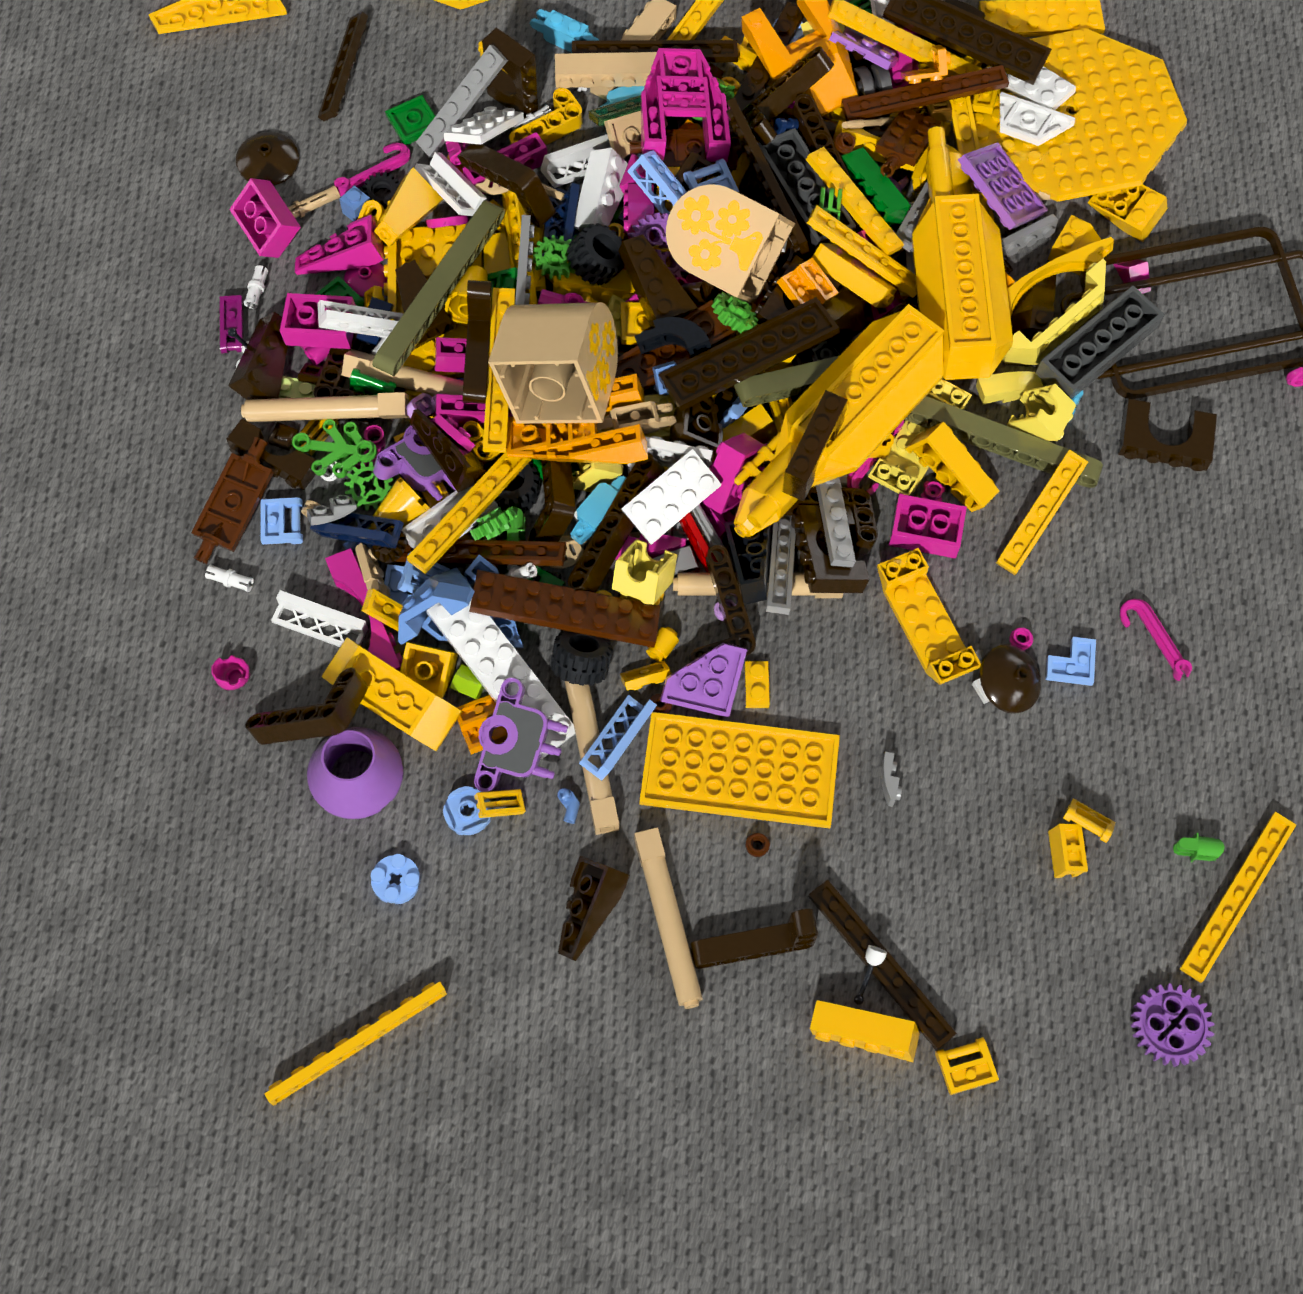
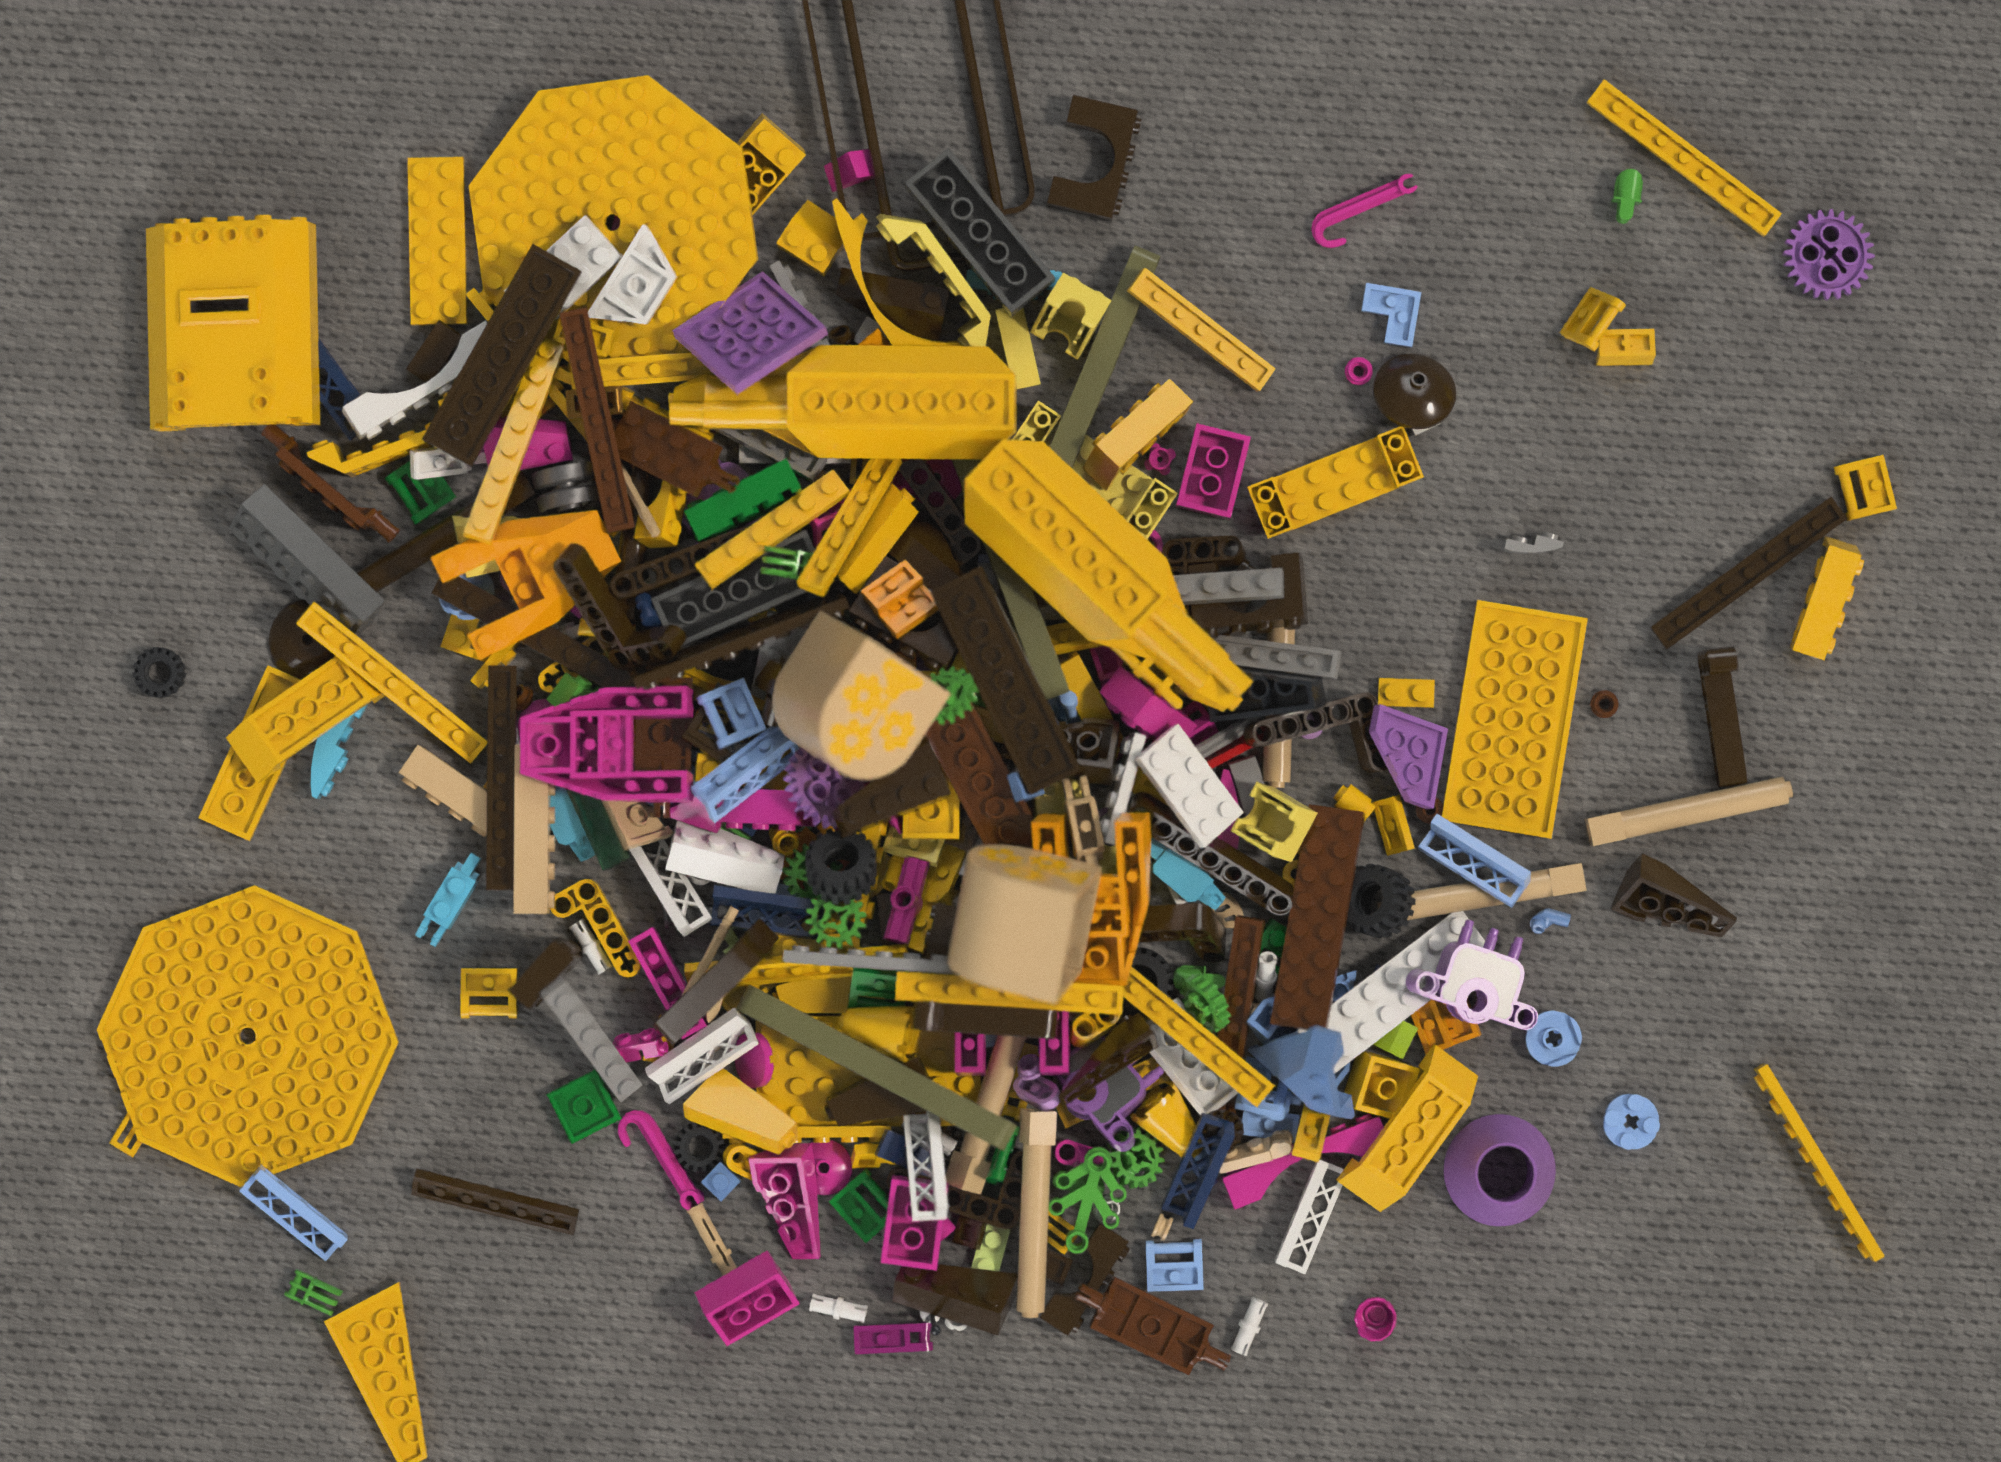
camera: 90 degrees left, 20 degrees up
(273, 165) = (647, 1283): dark brown dish -> none
(312, 720) = (1462, 1196): dark brown beam -> none
(339, 508) = (1173, 1196): light grey slope -> none
(460, 435) = (1087, 1054): dark pink plate -> none
(481, 805) = (1552, 1021): yellow tile -> none
(483, 125) = (621, 1010): white plate -> none
(674, 332) = (971, 758): black arch -> none
(821, 428) = (1178, 612): dark brown arch -> none
(844, 142) = (684, 529): reddish brown plate -> none
(865, 46) = (536, 489): medium lavender wing -> none
(874, 957) = (1746, 580): hinge -> none
(941, 59) = (567, 416): light orange bracket -> none

